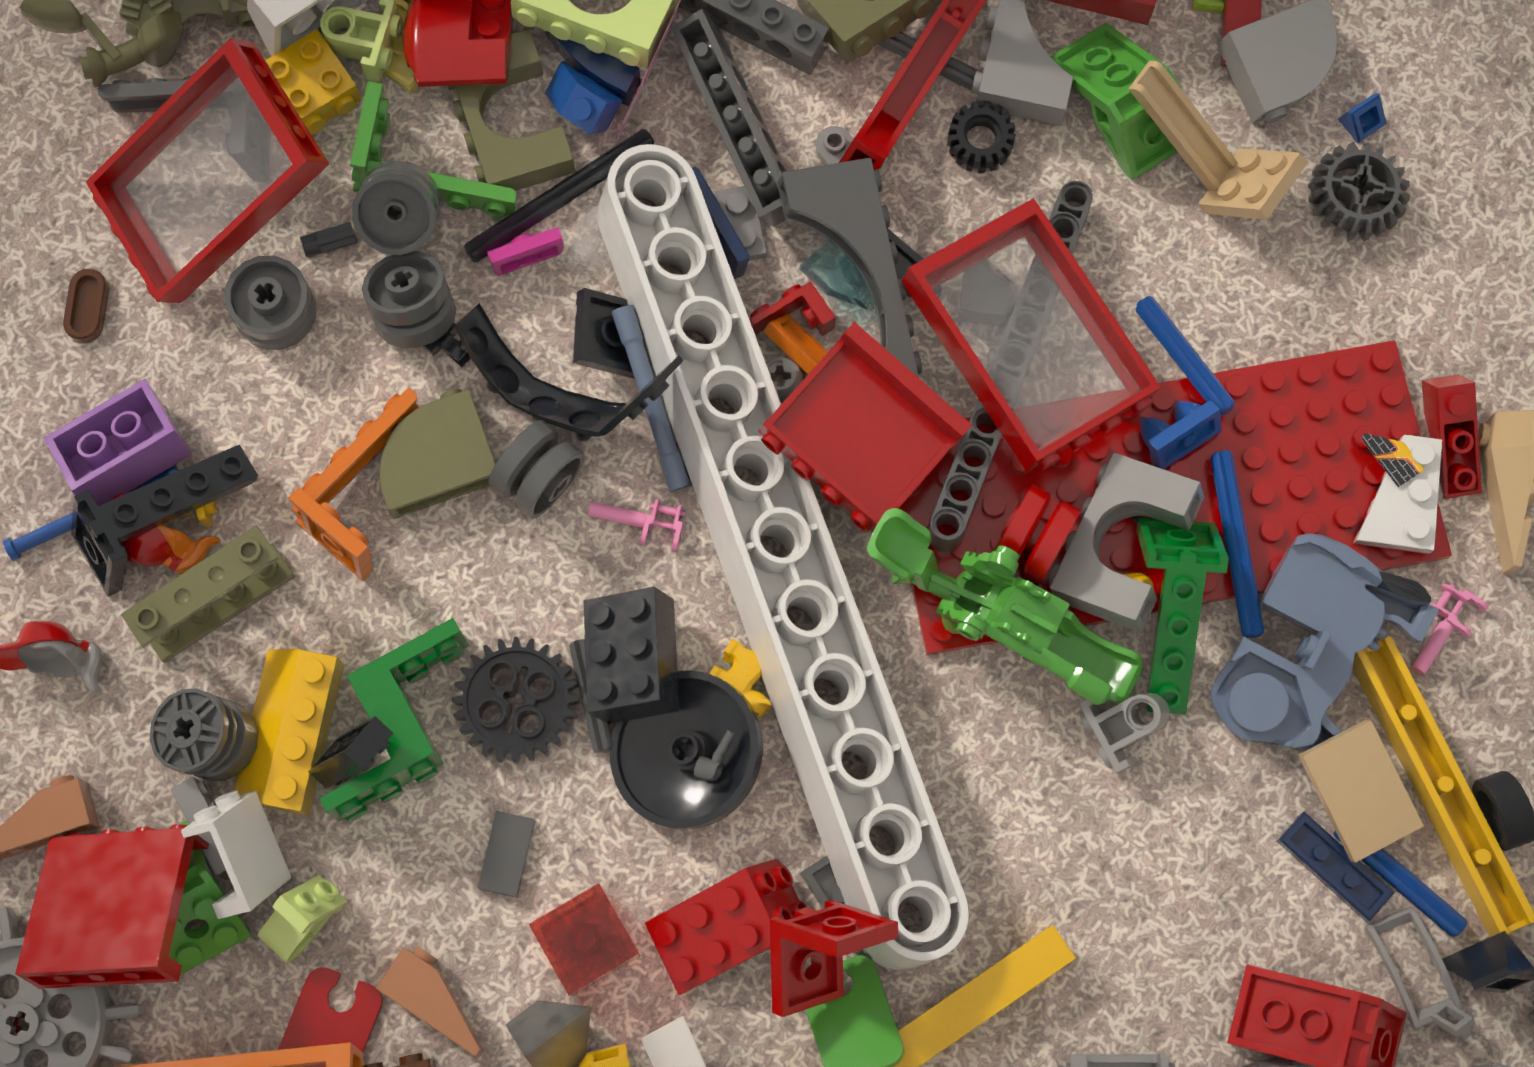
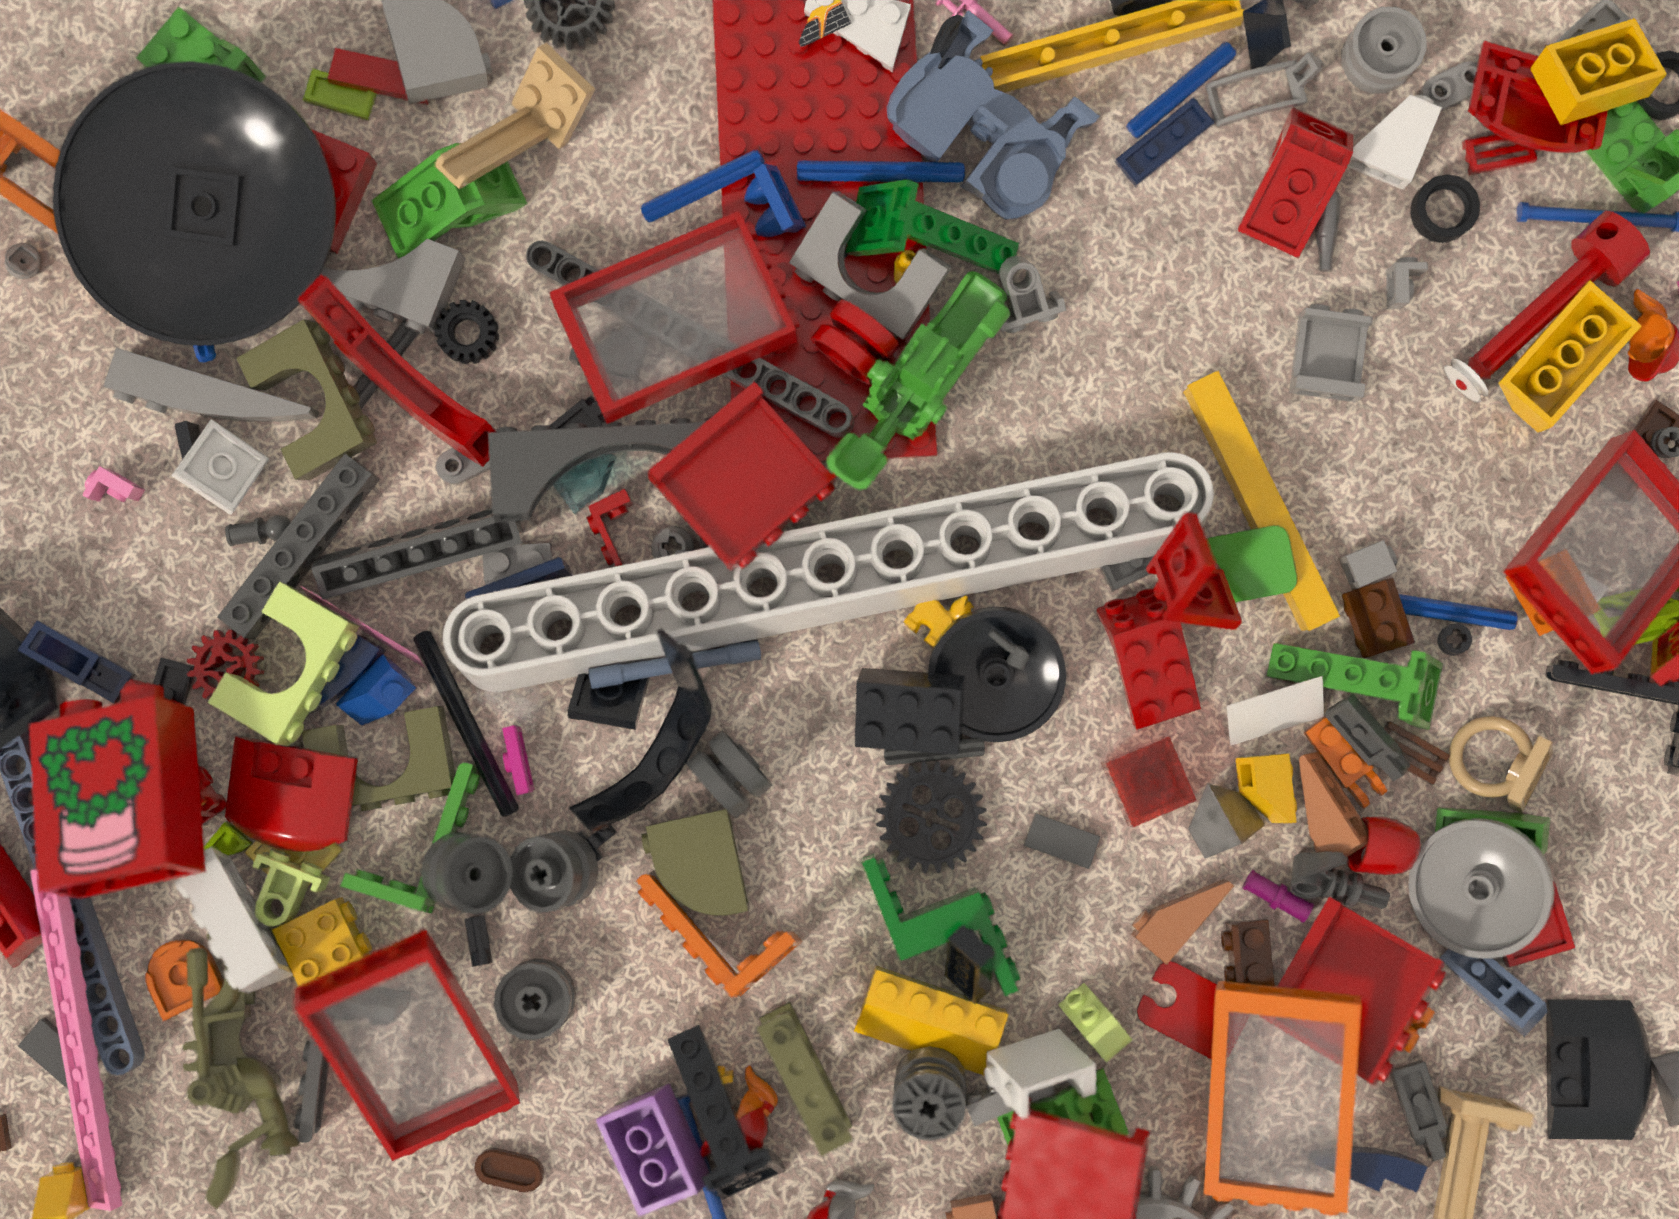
camera: 80 degrees left, 10 degrees up
(641, 519) = (781, 689): bright pink piece -> none
(795, 342) = (644, 524): orange tile -> none
(1361, 790) = (1109, 107): tan tile -> none

